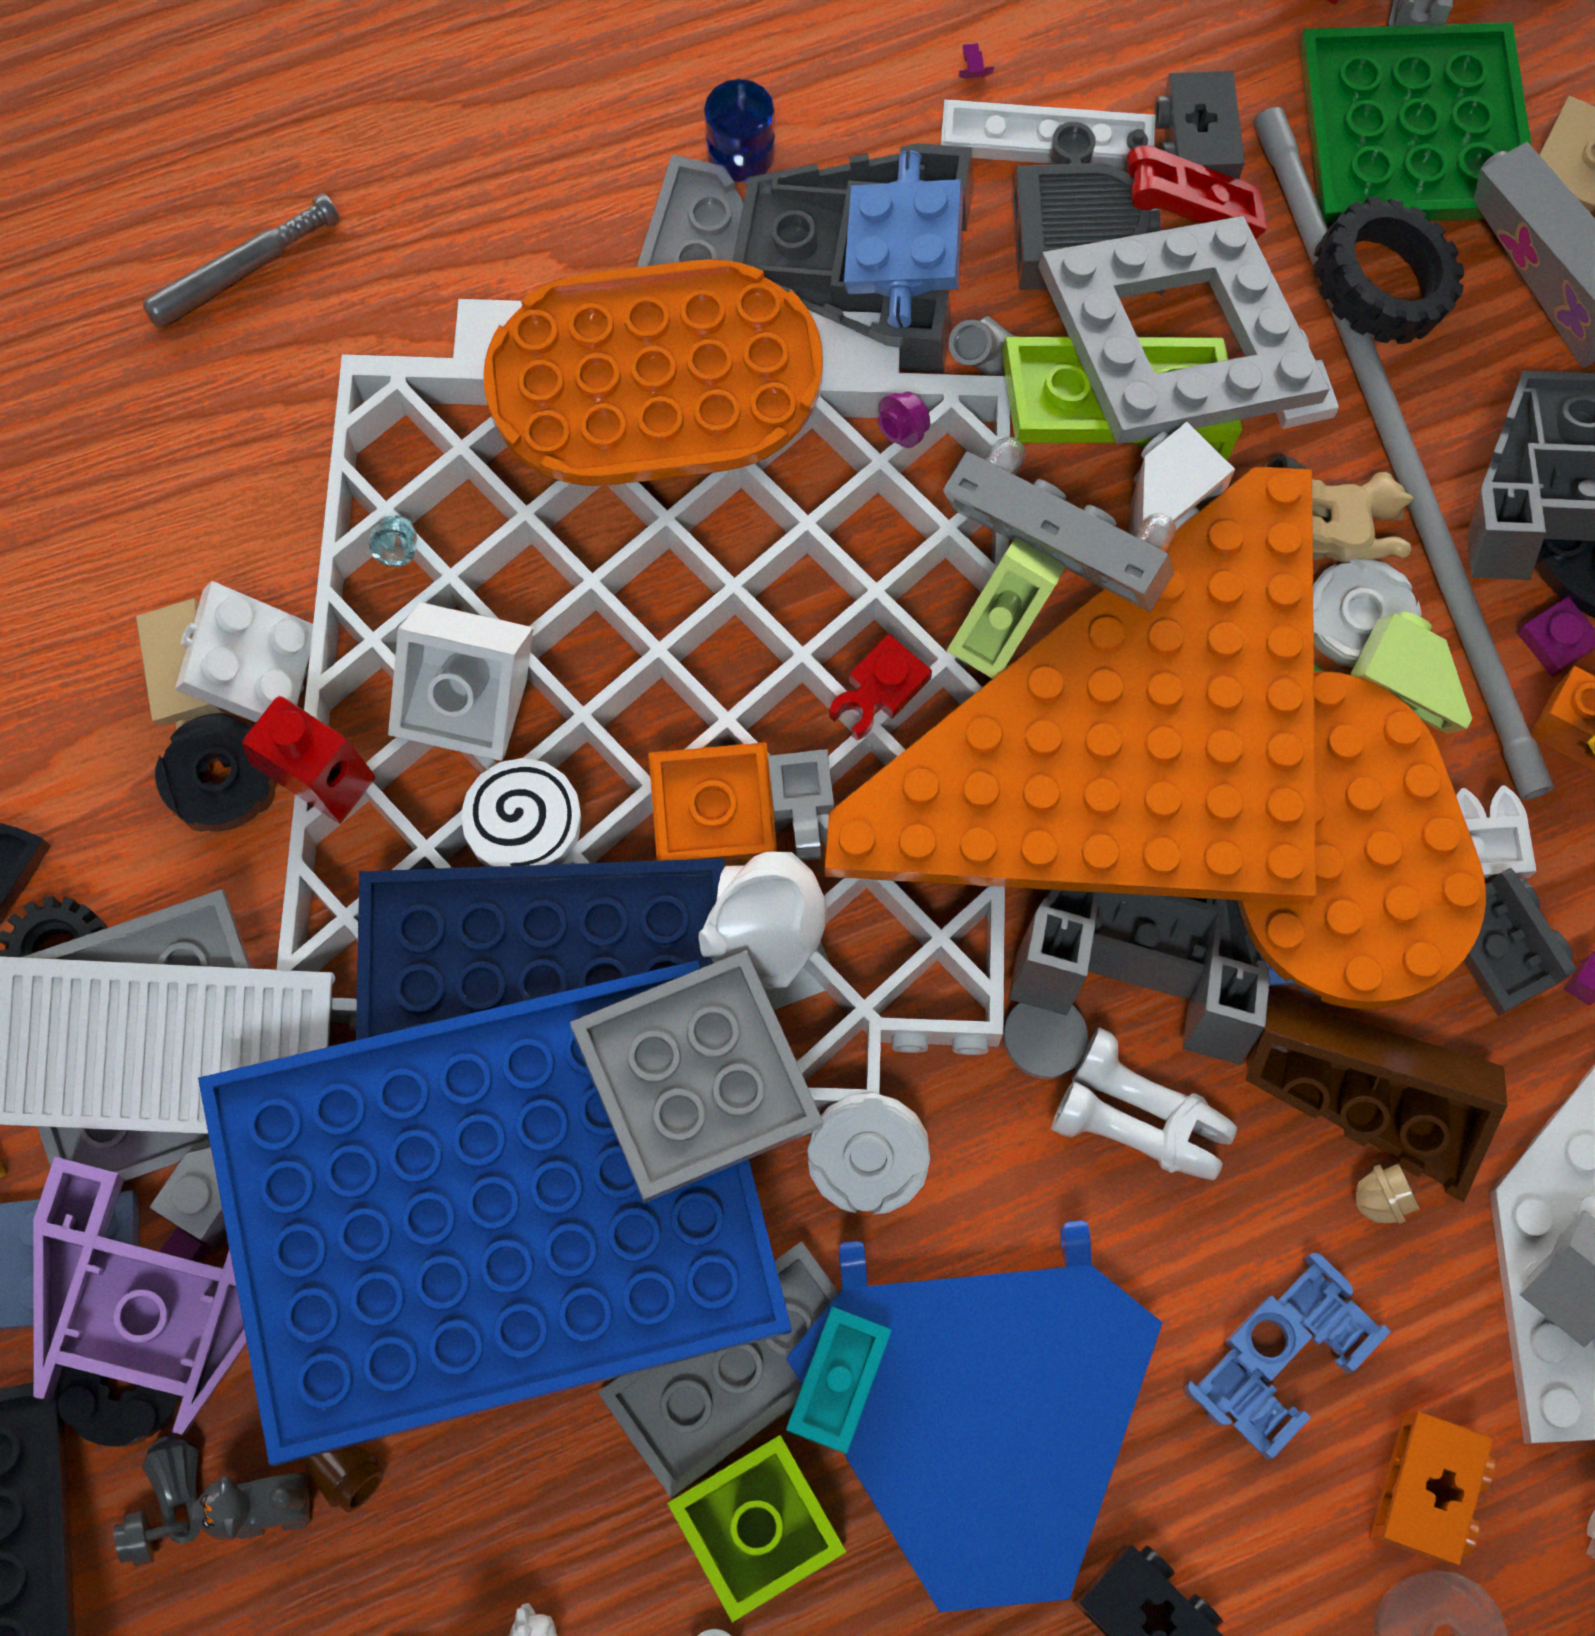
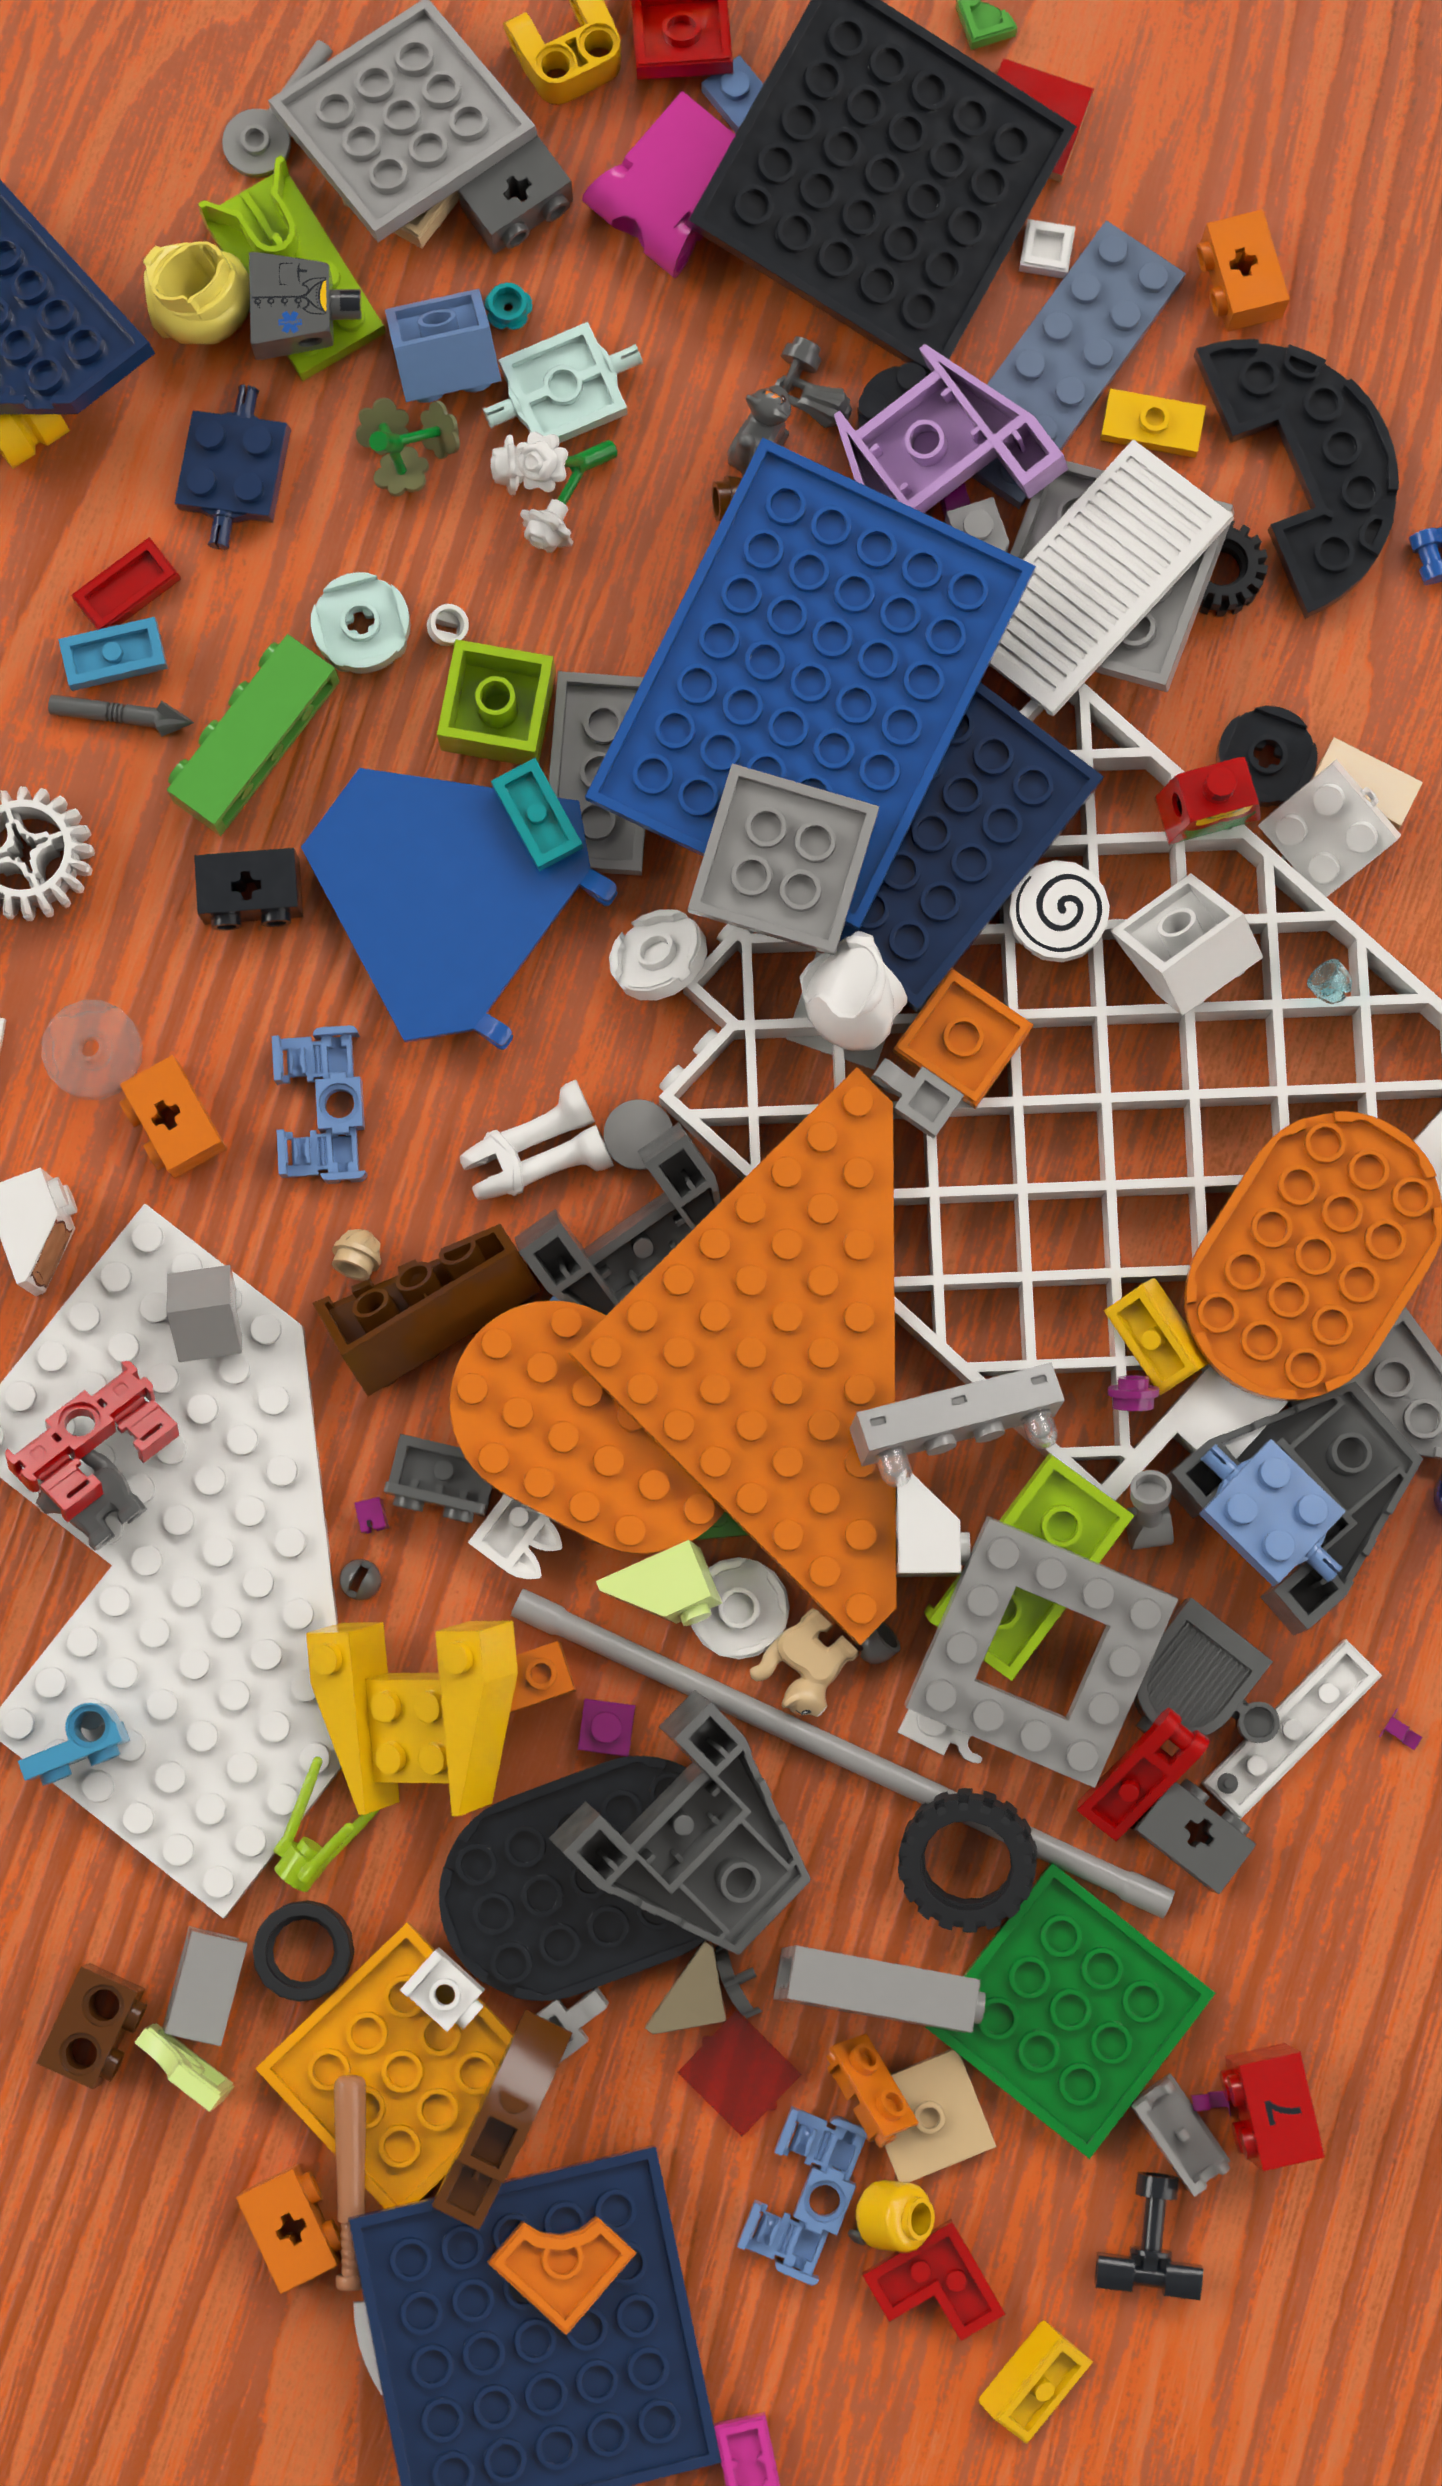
camera: 130 degrees right, 10 degrees up
(833, 444) = (1156, 1335): none -> yellow slope
(884, 682) = (954, 1223): red plate -> none
(1006, 608) = (934, 1337): yellowish green slope -> none

